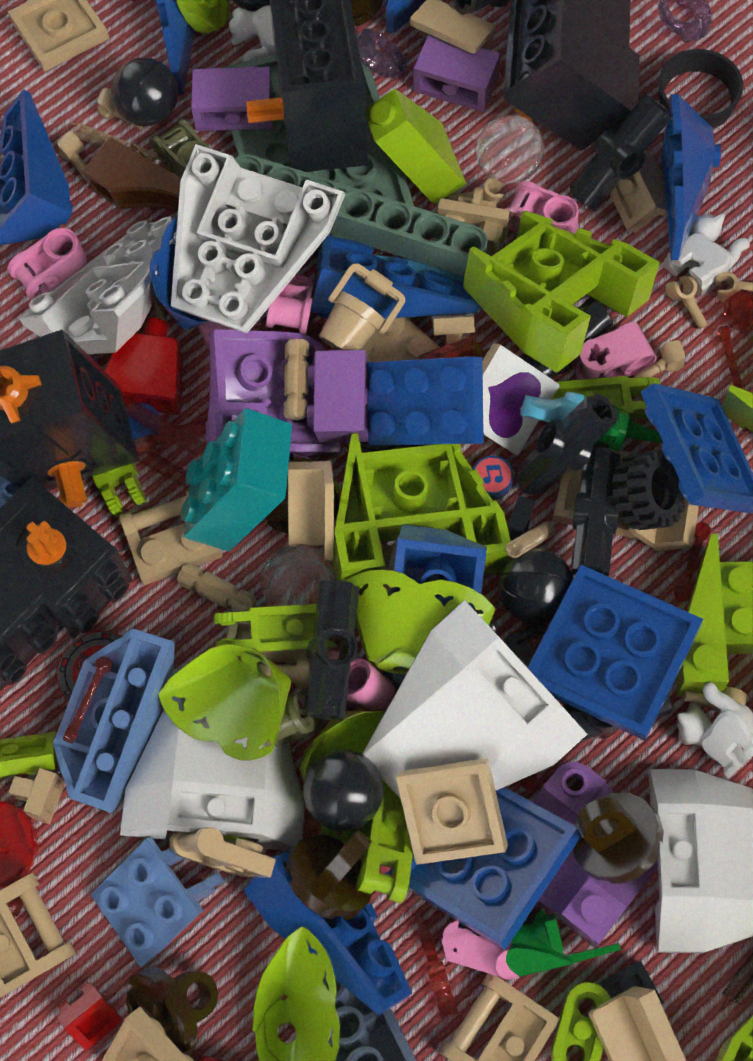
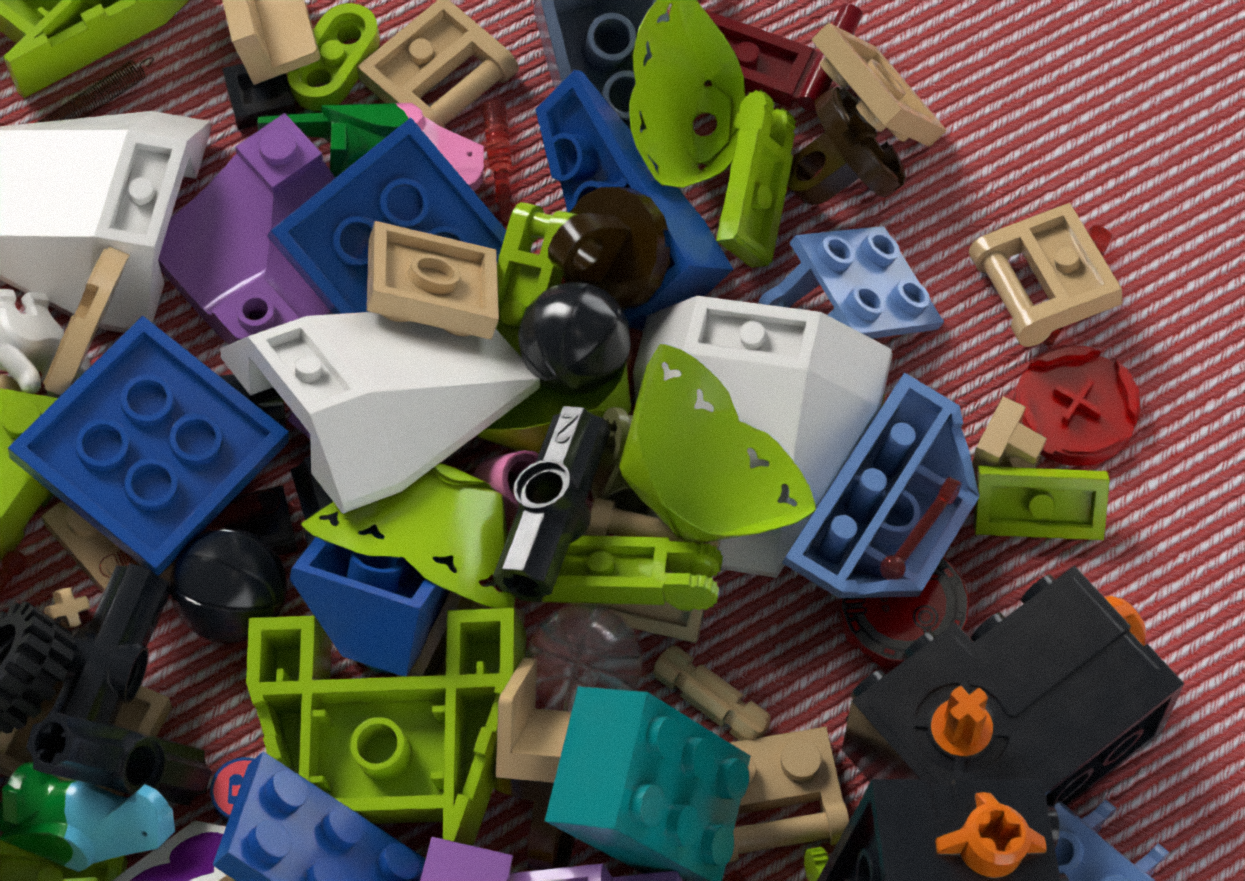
camera: 175 degrees left, 5 degrees down
(88, 1017) = (949, 174): red tile -> none
(211, 849) = (742, 267): tan plate -> none
(237, 977) = (757, 180): none -> lime hinge
(520, 517) = (225, 690): black tile -> none
(530, 539) = (230, 643): tan piece -> none
(618, 837) = (220, 220): dark brown tile -> none
(633, 548) = (67, 607): none -> tan axle
(685, 735) = (85, 321): none -> tan tile

